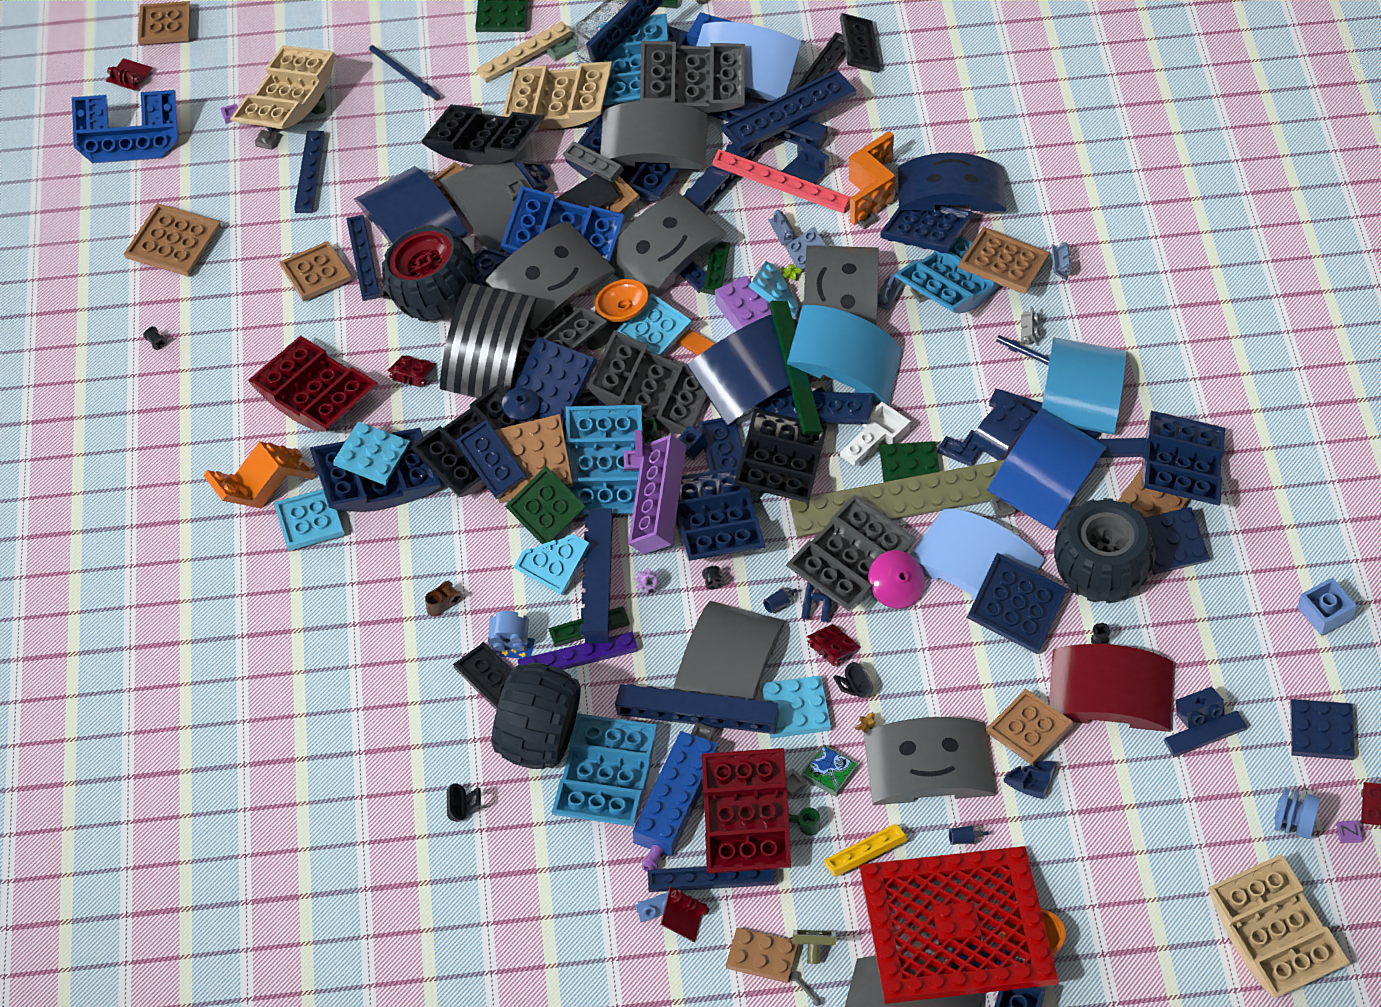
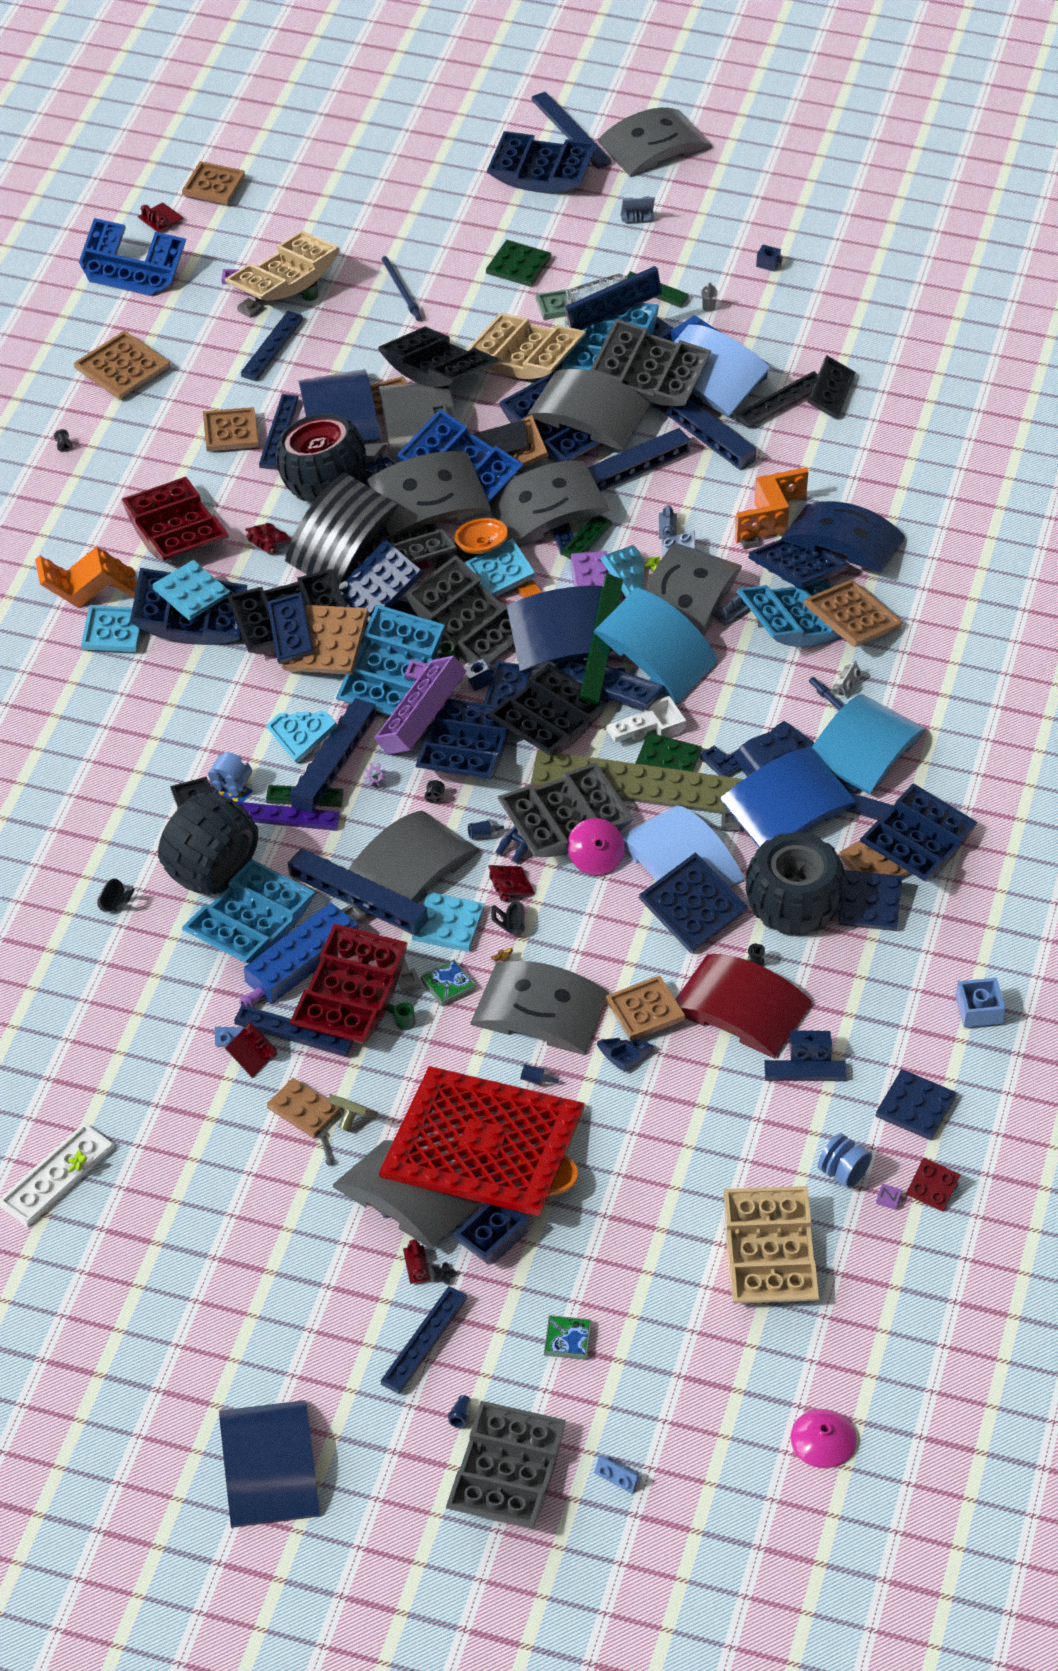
camera: 20 degrees right, 5 degrees down
(444, 596) = (188, 730): reddish brown piece -> none
(520, 410) = (342, 591): dark blue dish -> none
(524, 51) = (517, 302): tan plate -> none
(534, 173) = (465, 407): dark blue plate -> none
(545, 506) = (318, 682): dark green plate -> none
(593, 161) = (518, 410): dark grey plate -> none
(638, 443) = (425, 655): medium lavender tile -> none
(781, 181) = (685, 481): coral tile -> none
(788, 110) = (726, 422): dark blue plate -> none
(809, 163) = (719, 480): dark blue bracket -> none
(865, 850) = (440, 1056): yellow plate -> none
(1061, 260) = (908, 631): sand blue hinge -> none

